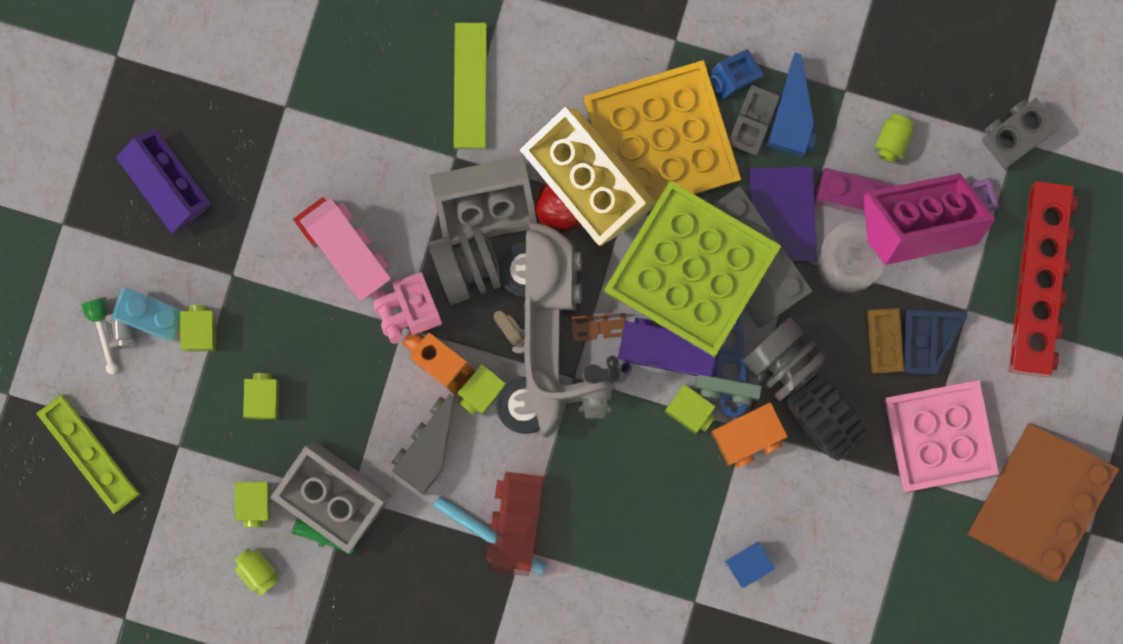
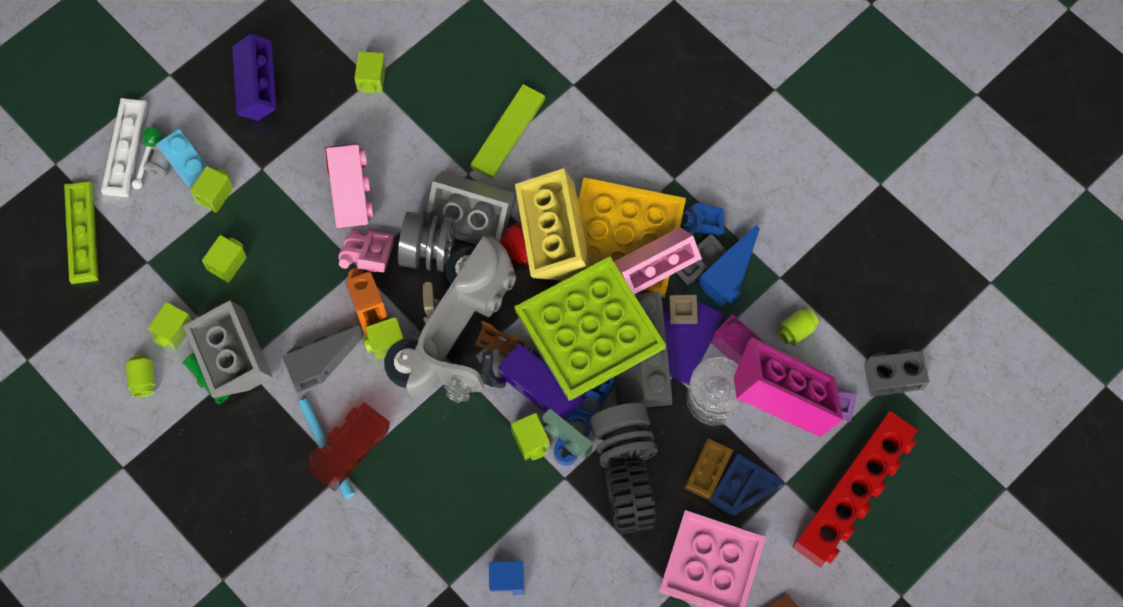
camera: 30 degrees right, 15 degrees down
(70, 334) = (124, 147): none -> white tile
(283, 102) = (370, 72): none -> lime brick
(717, 152) = (658, 259): none -> bright pink brick
(749, 435) = (564, 481): orange brick -> none
(769, 187) = (683, 309): none -> dark tan plate

